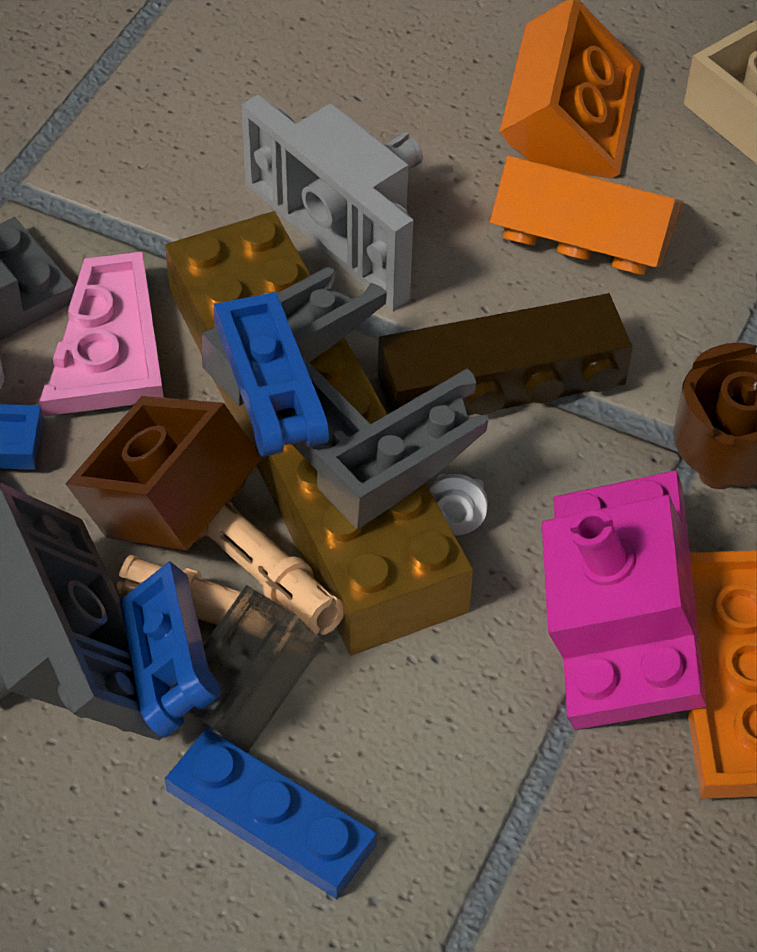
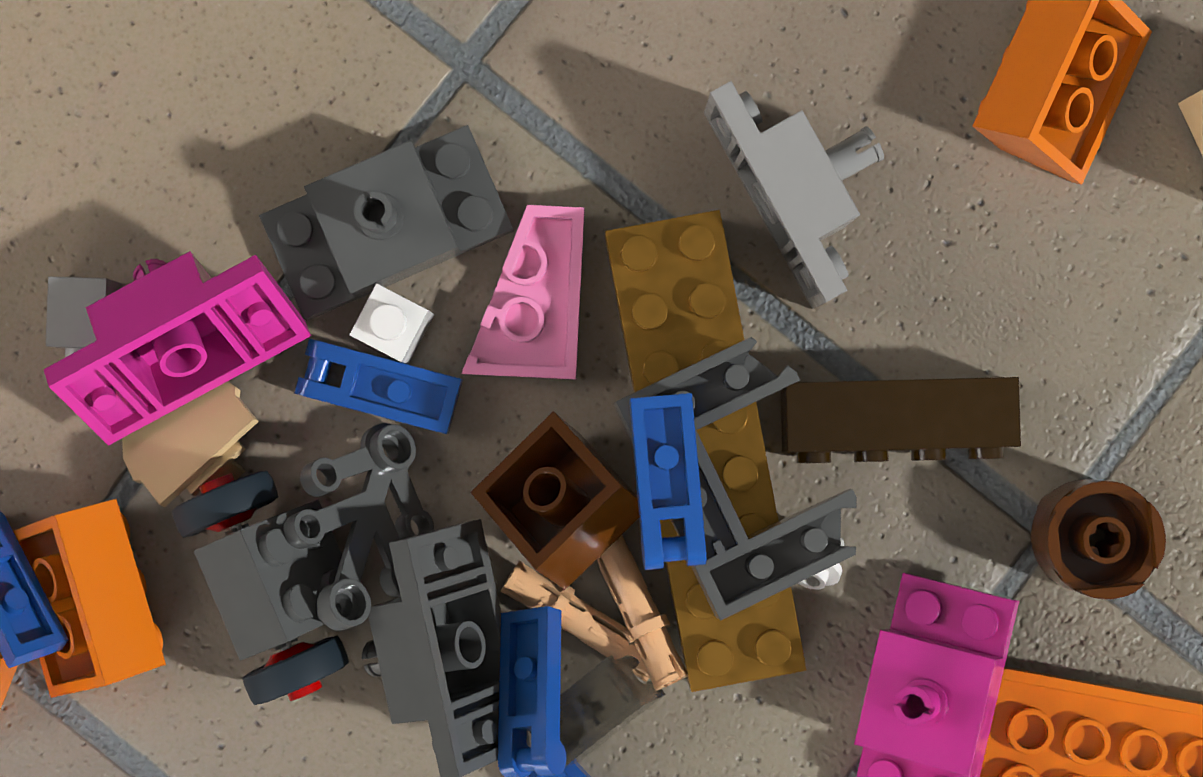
camera: 15 degrees right, 35 degrees up
(585, 214) = (1035, 243): orange slope -> none

